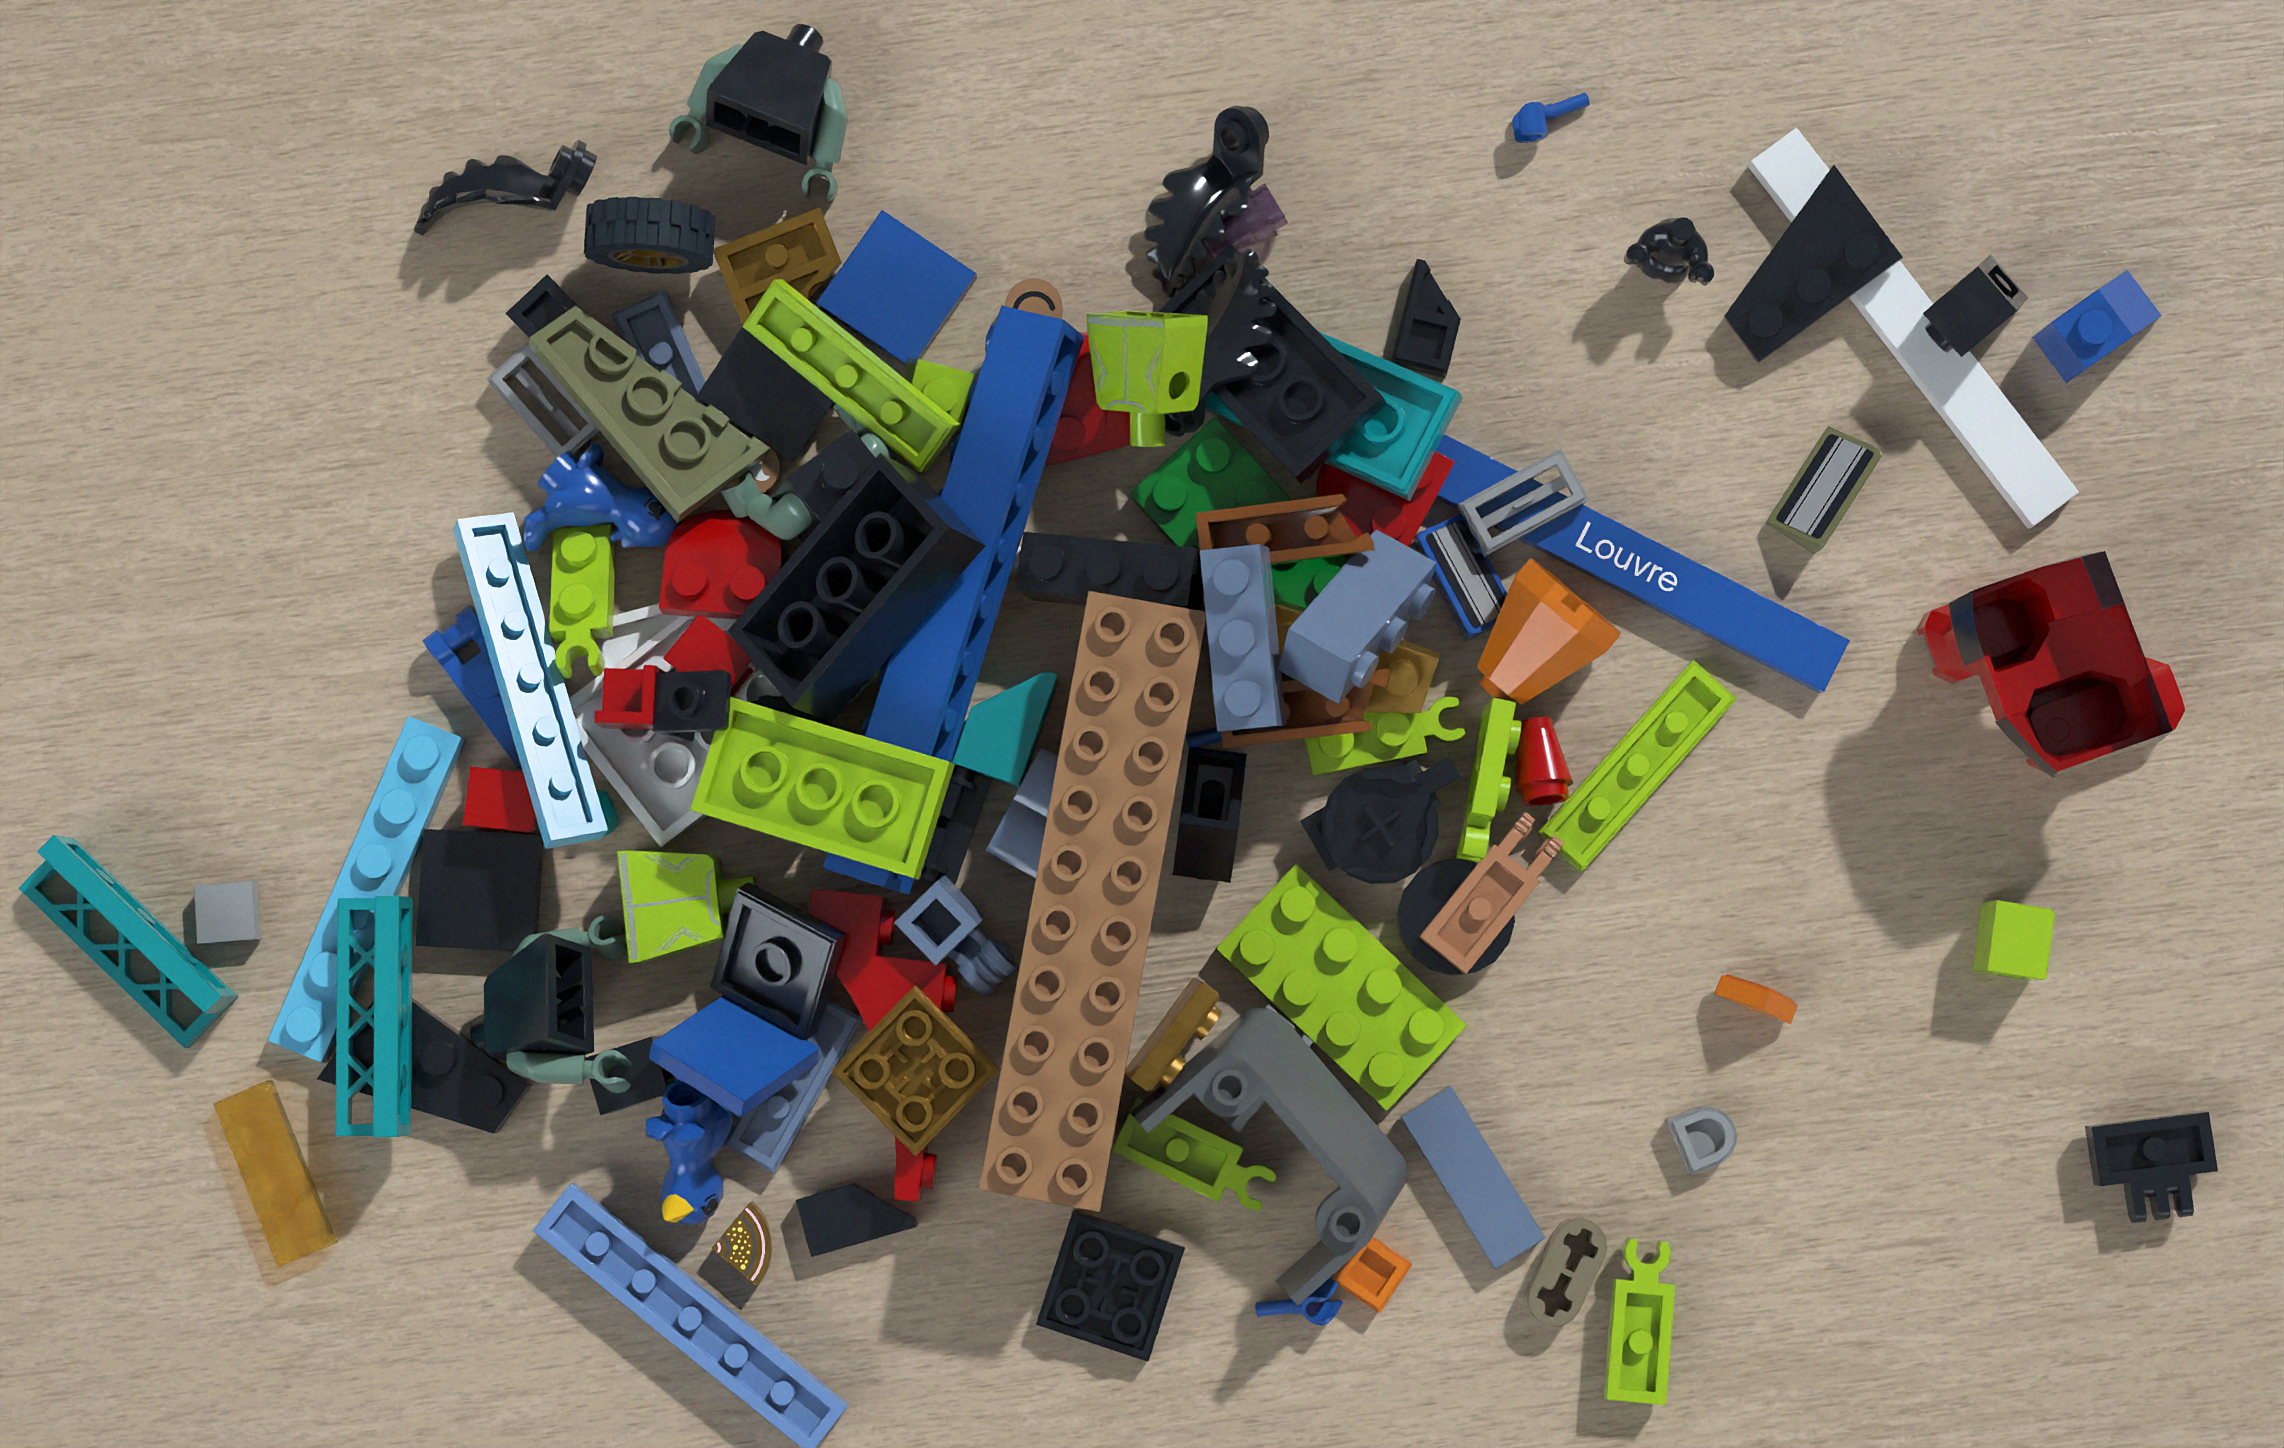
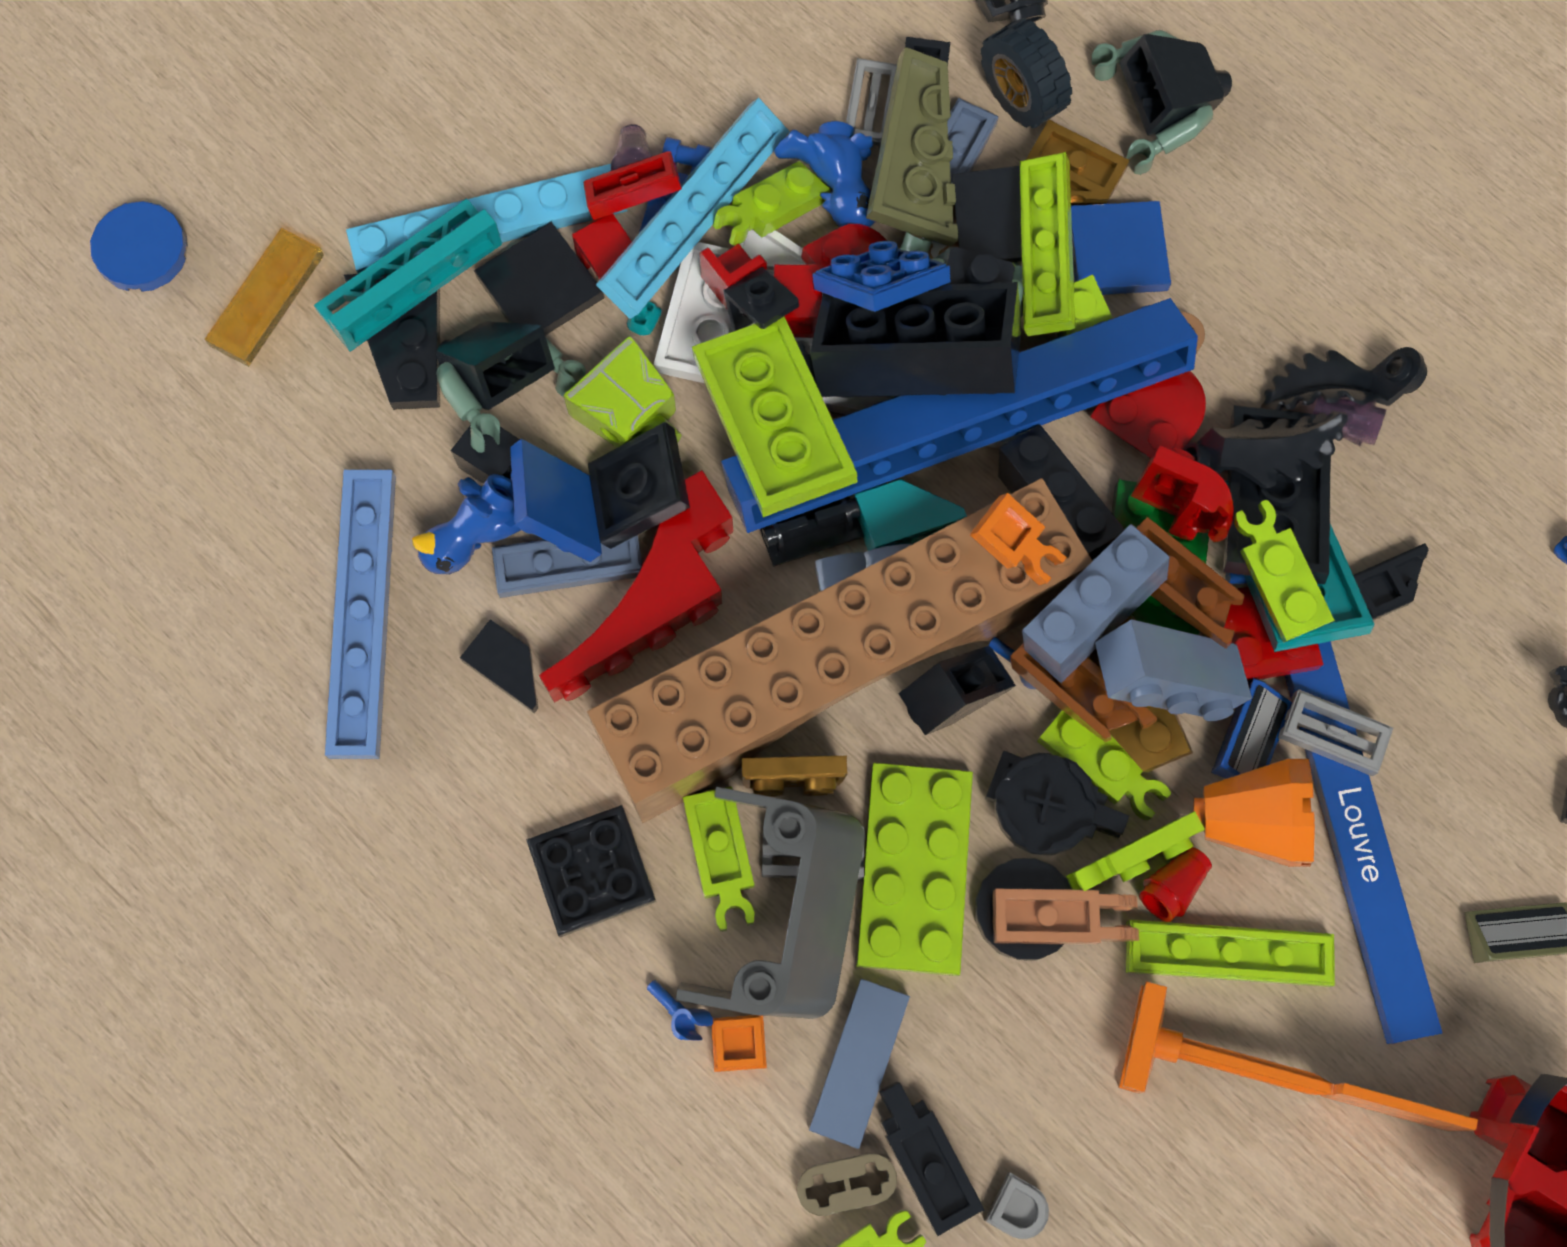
camera: 45 degrees right, 10 degrees down
(117, 1261) = (138, 246): none -> blue tile
(135, 924) = (356, 113): teal fence -> none
(227, 912) = (409, 152): light grey tile -> none
(422, 696) = (631, 147): none -> cone
(466, 730) = (631, 185): none -> red tile
(747, 1244) = (437, 612): pearl gold tile -> none
(765, 572) = (881, 276): none -> blue tile
(915, 1070) = (634, 621): pearl gold tile -> none
(948, 925) = (747, 576): sand blue brick -> none
(1127, 674) = (1012, 536): none -> orange plate
(1147, 366) = (1216, 411): lime torso -> none
(1213, 451) = (1188, 492): none -> red slope
(1353, 442) = (1282, 576): none -> lime plate
(1602, 1185) = (928, 1161): none -> black hinge
(1658, 902) = (1152, 1041): none -> orange piece
(1756, 998) = (1146, 1168): orange tile -> none

